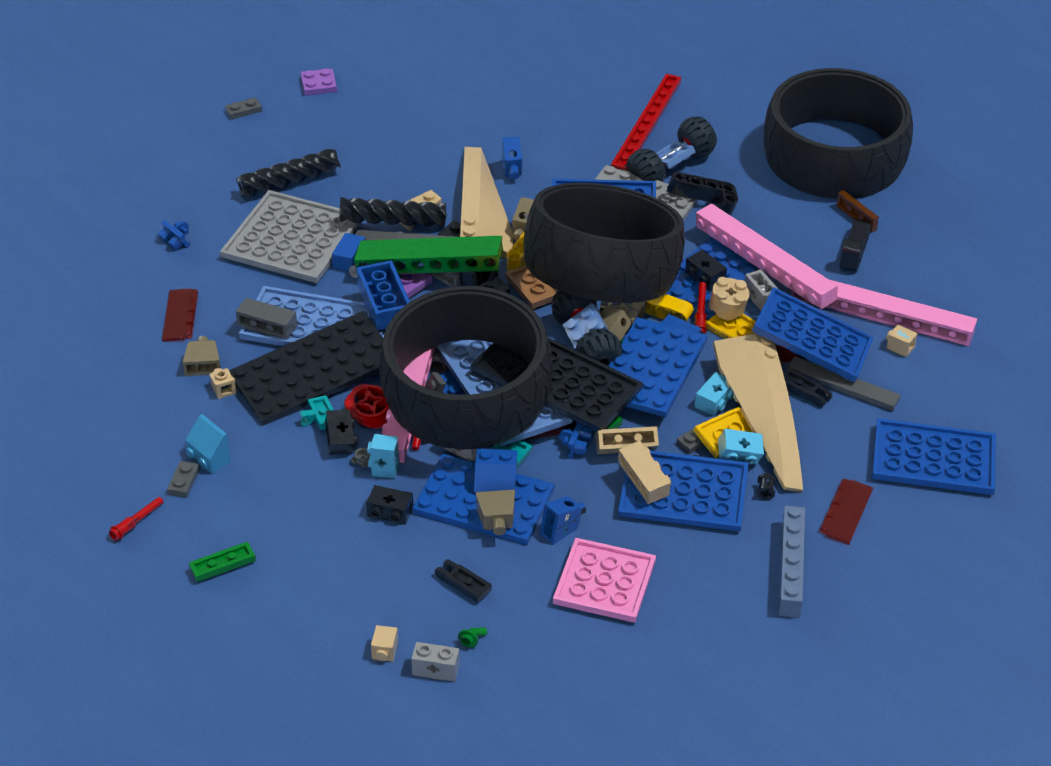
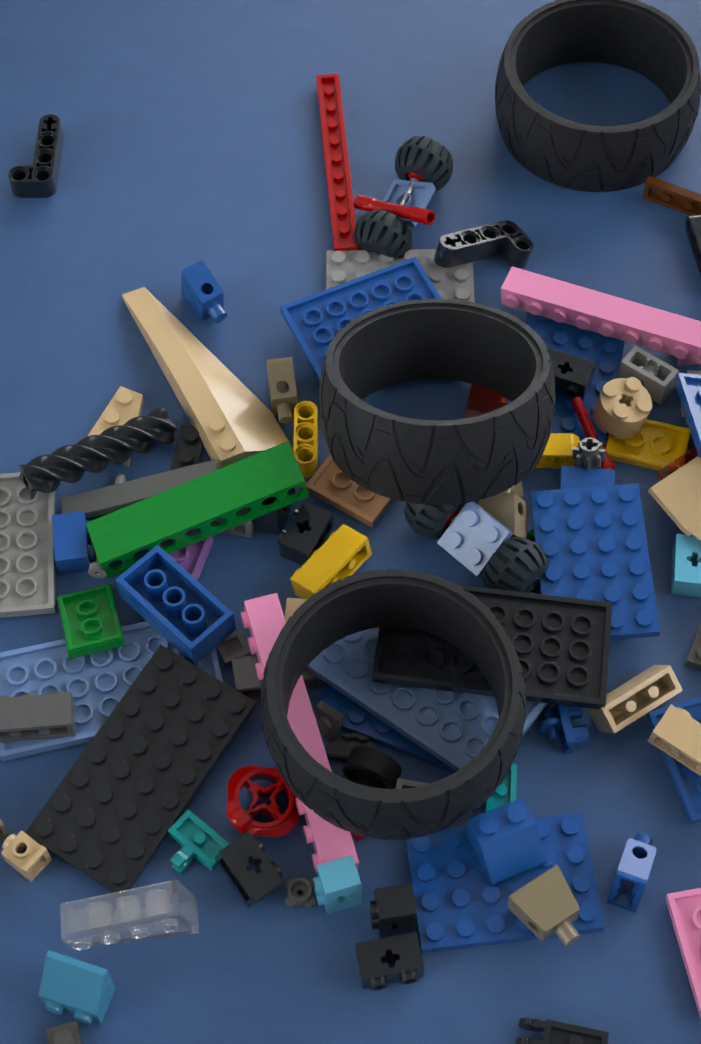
camera: 25 degrees left, 15 degrees up
(262, 427) = (130, 915): none -> clear wedge
(333, 290) = (90, 621): none -> green tile
(407, 476) = (393, 910): none -> black brick
(460, 71) = (42, 177): none -> black beam
(668, 157) = (412, 213): none -> red piece
(690, 312) = (589, 453): none -> dark grey gear

